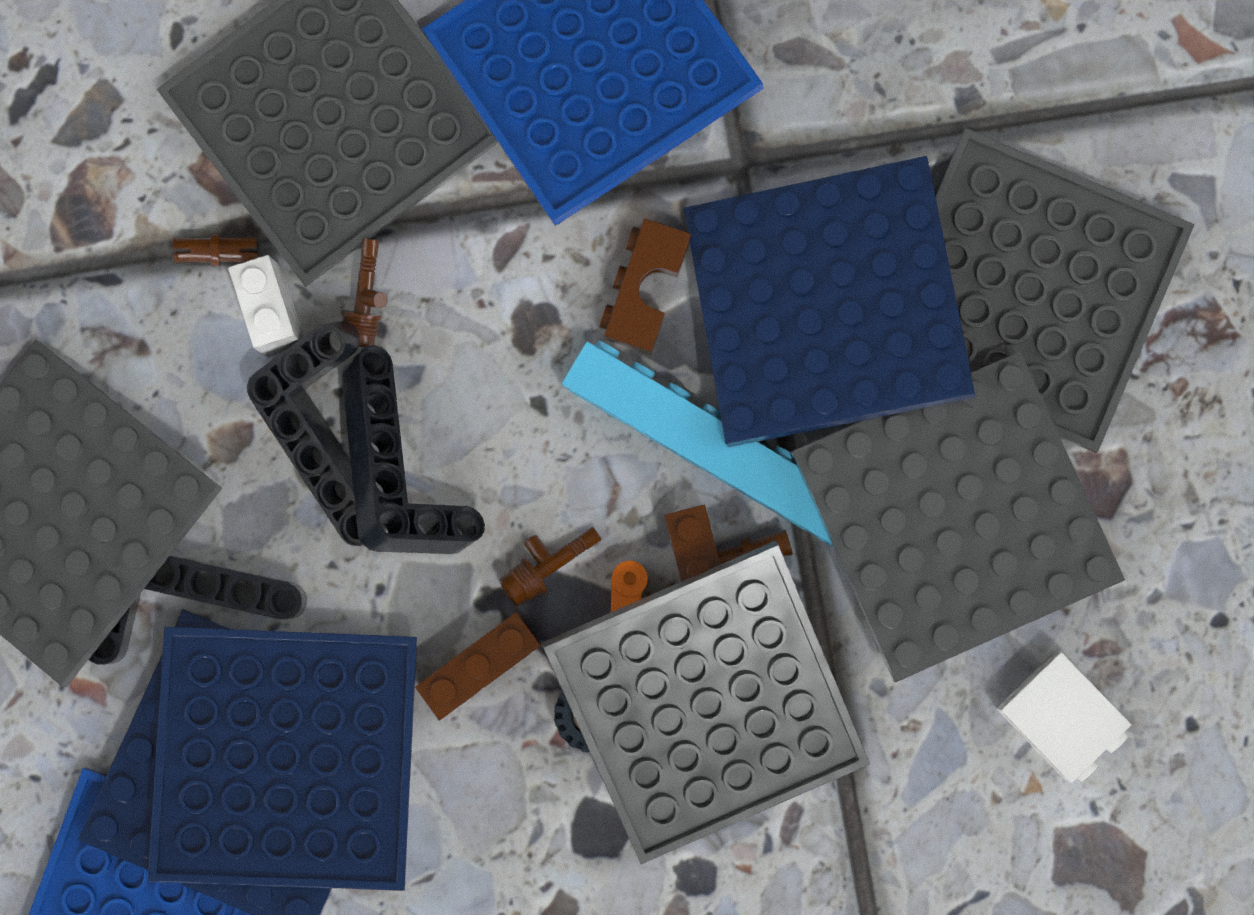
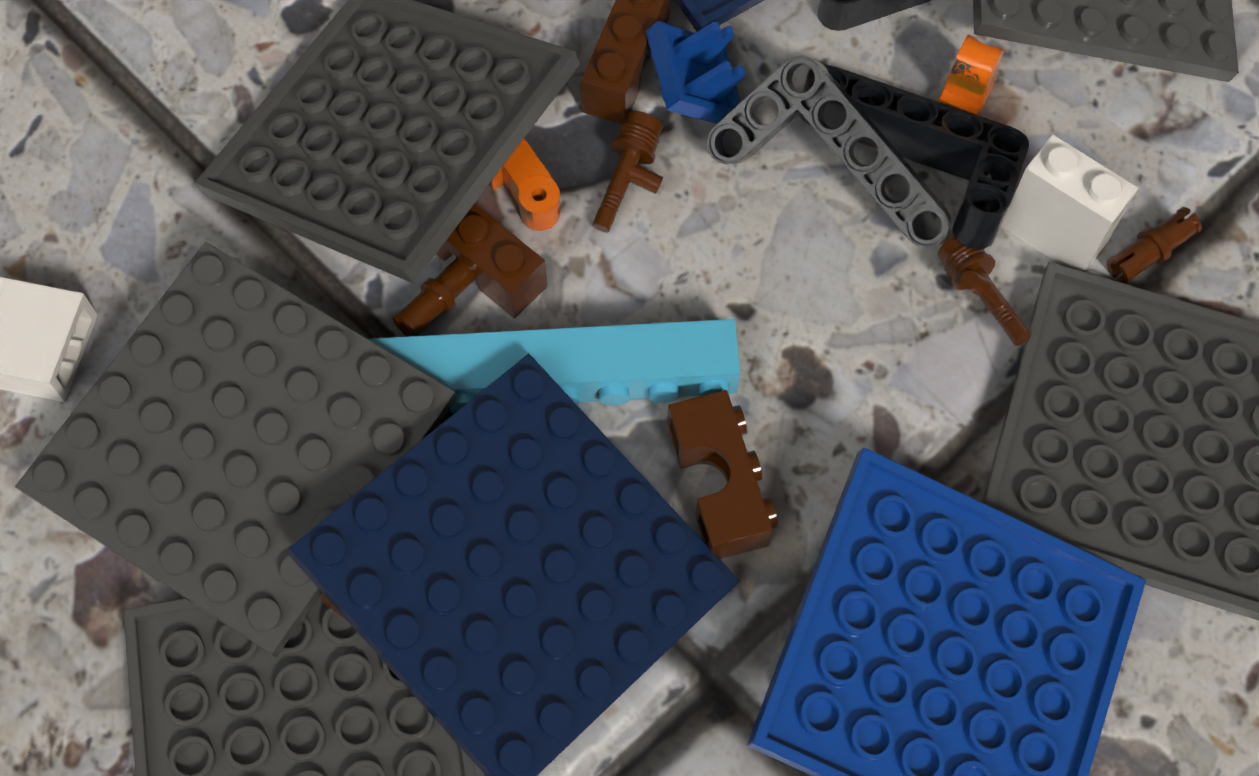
camera: 140 degrees right, 20 degrees down
(247, 461) = (972, 76): none -> orange leg
(446, 602) = (695, 70): none -> blue plate

